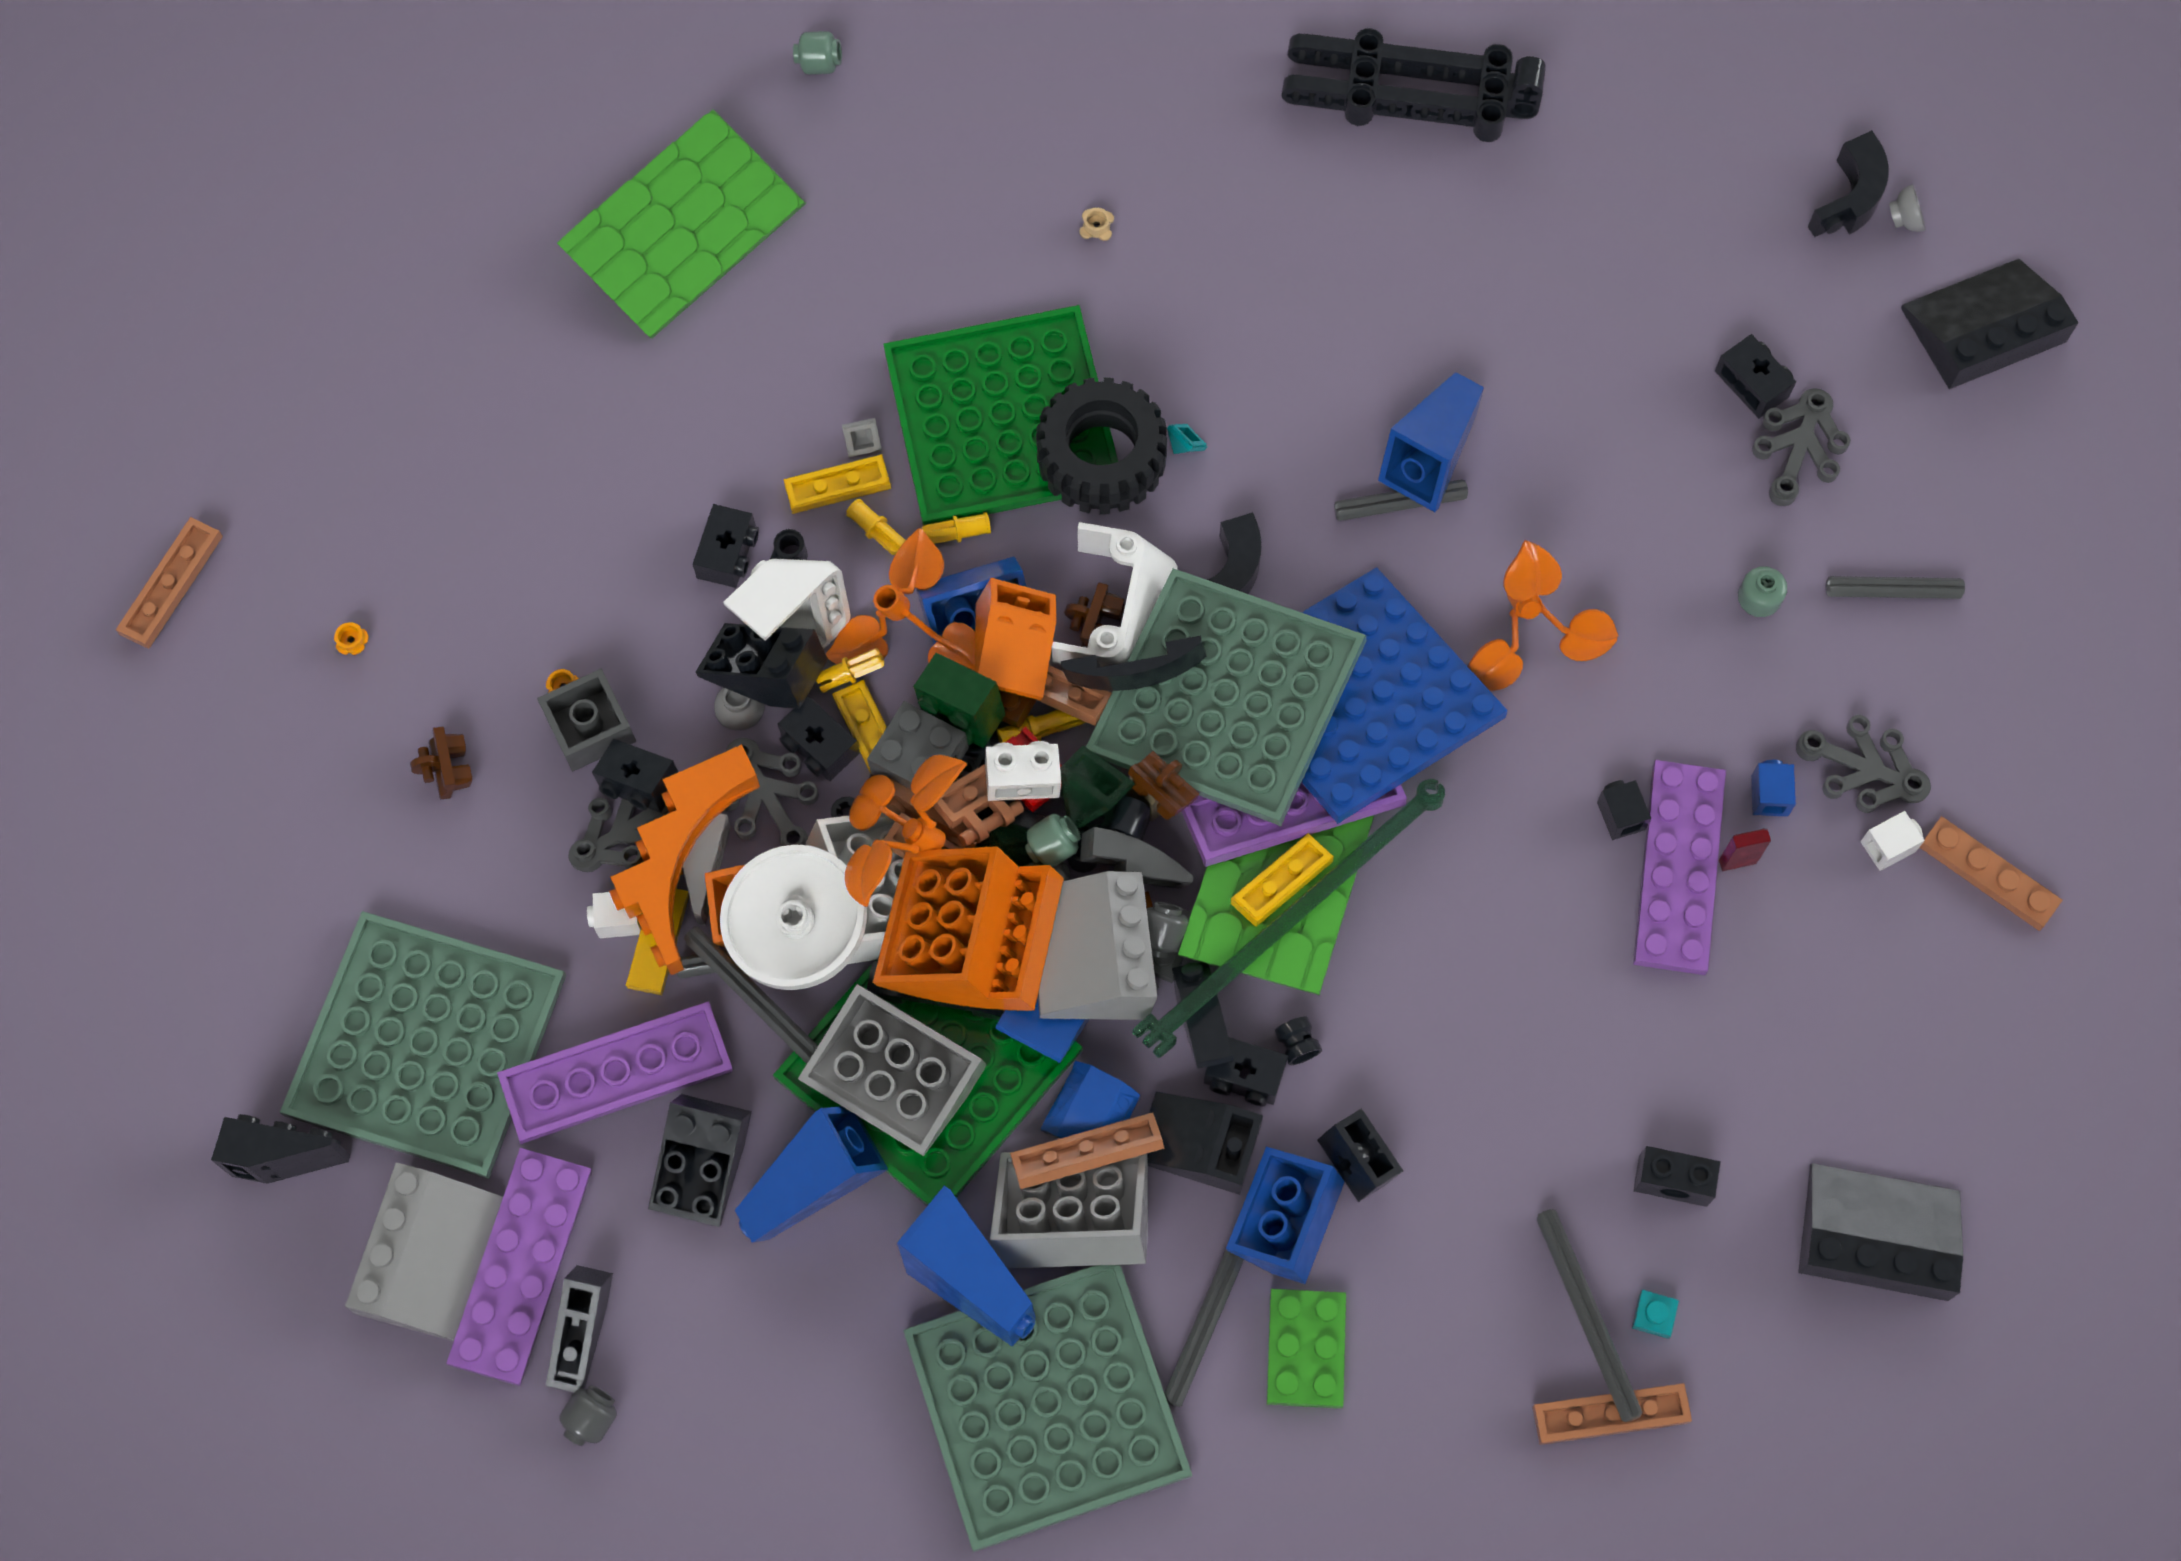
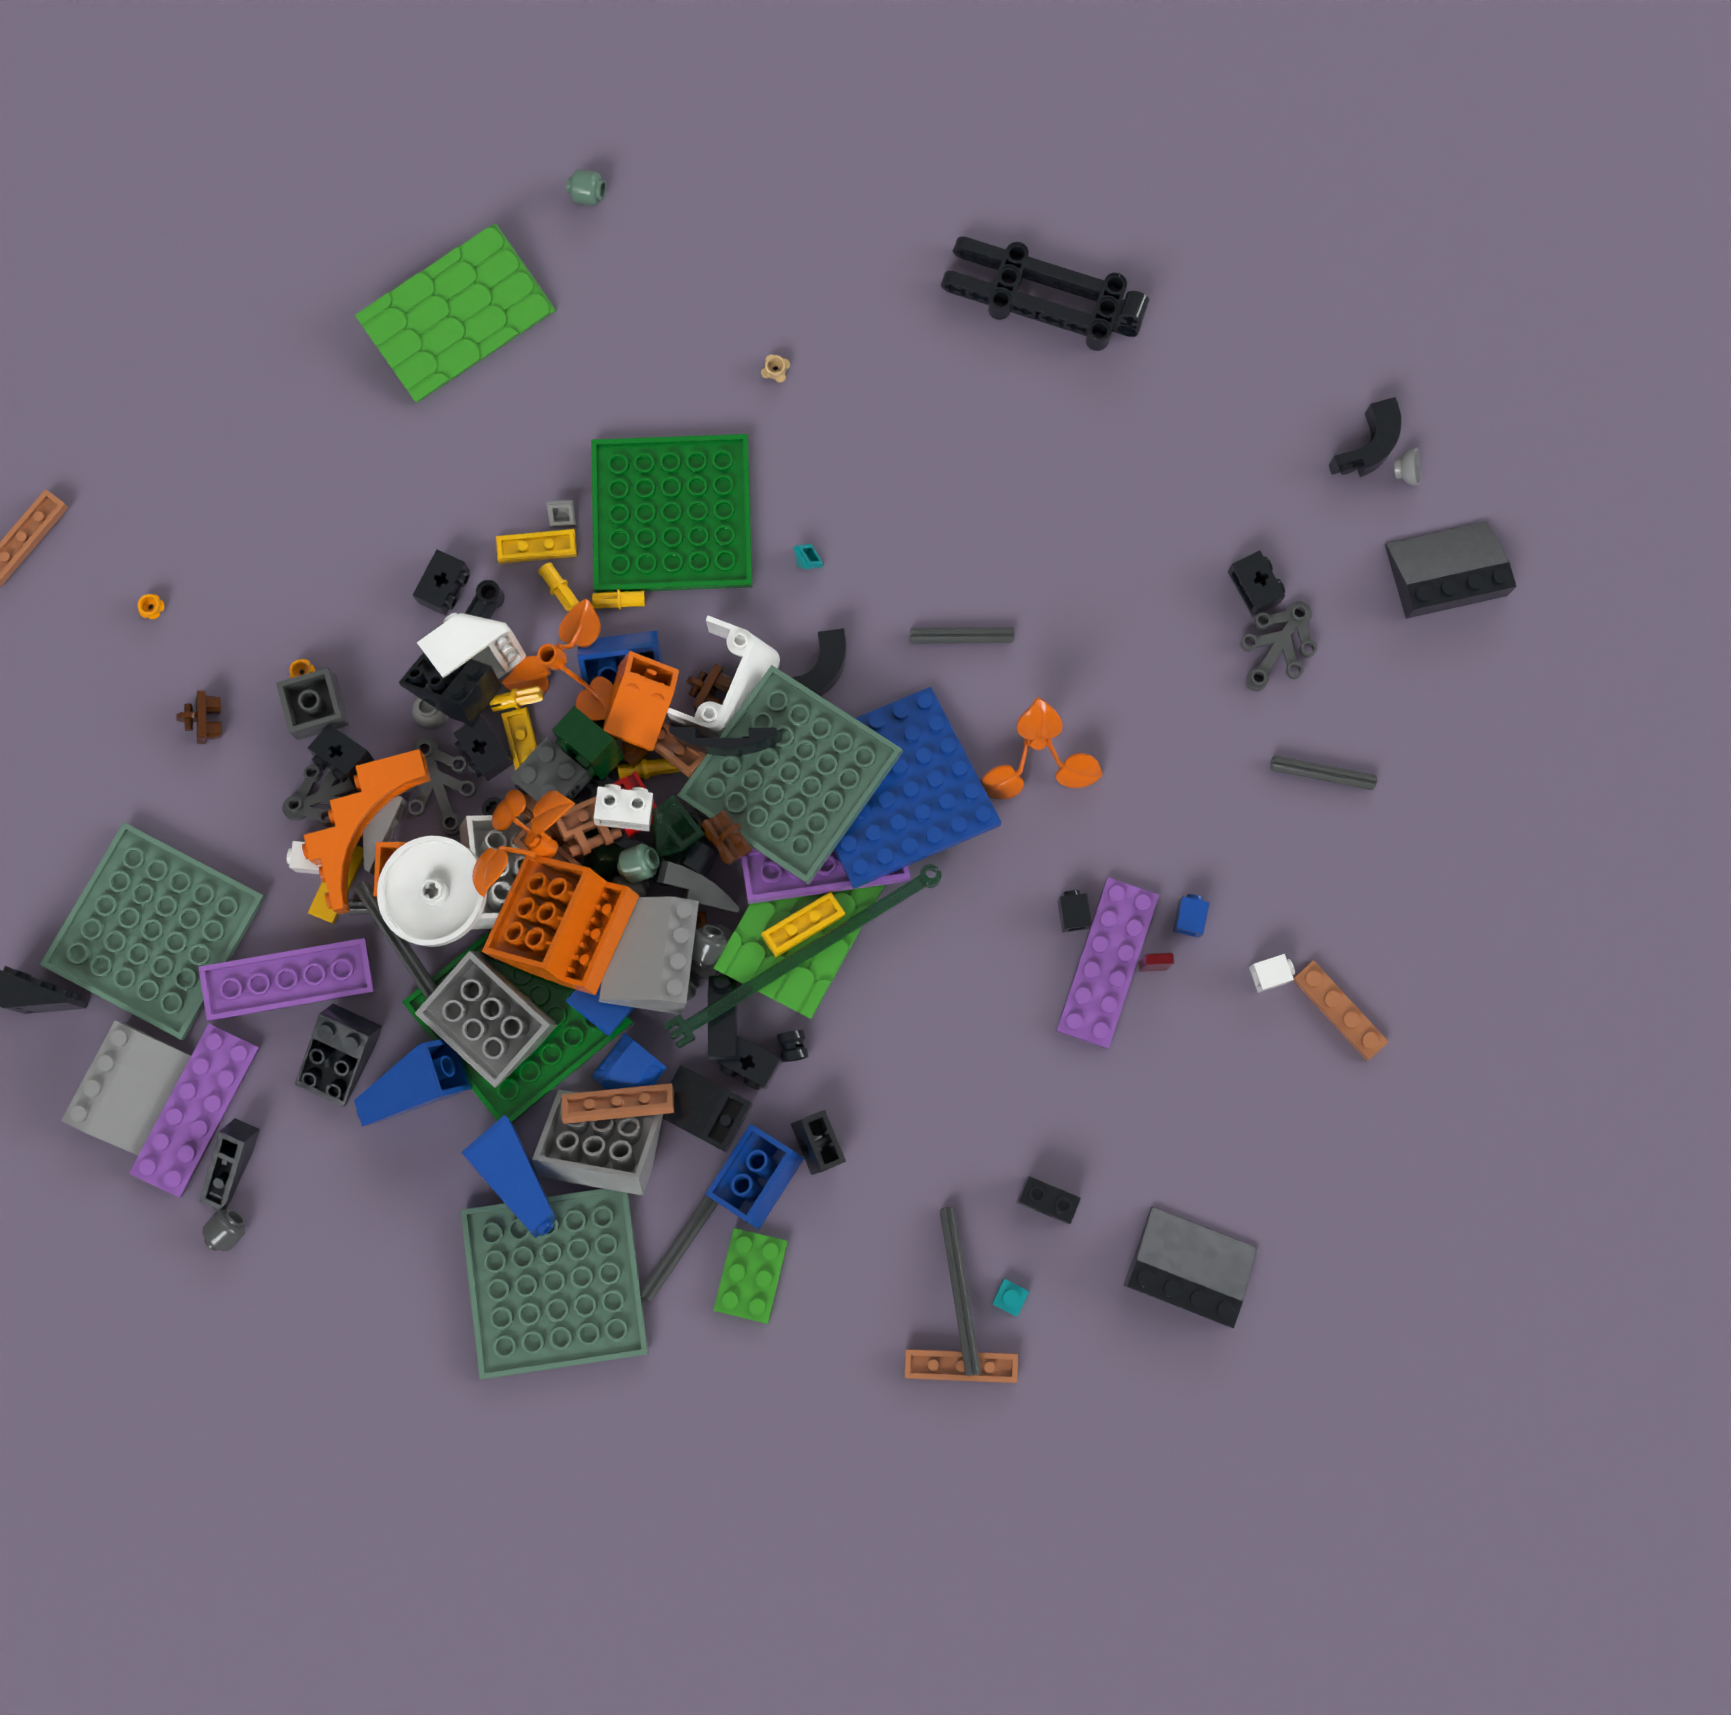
camera: 10 degrees right, 10 degrees up
(1101, 406) = (731, 523): black tyre -> none
(1429, 442) = (992, 593): blue slope -> none
(1762, 591) = (1215, 767): sand green head -> none
(1869, 767) = (1268, 911): dark grey plant -> none

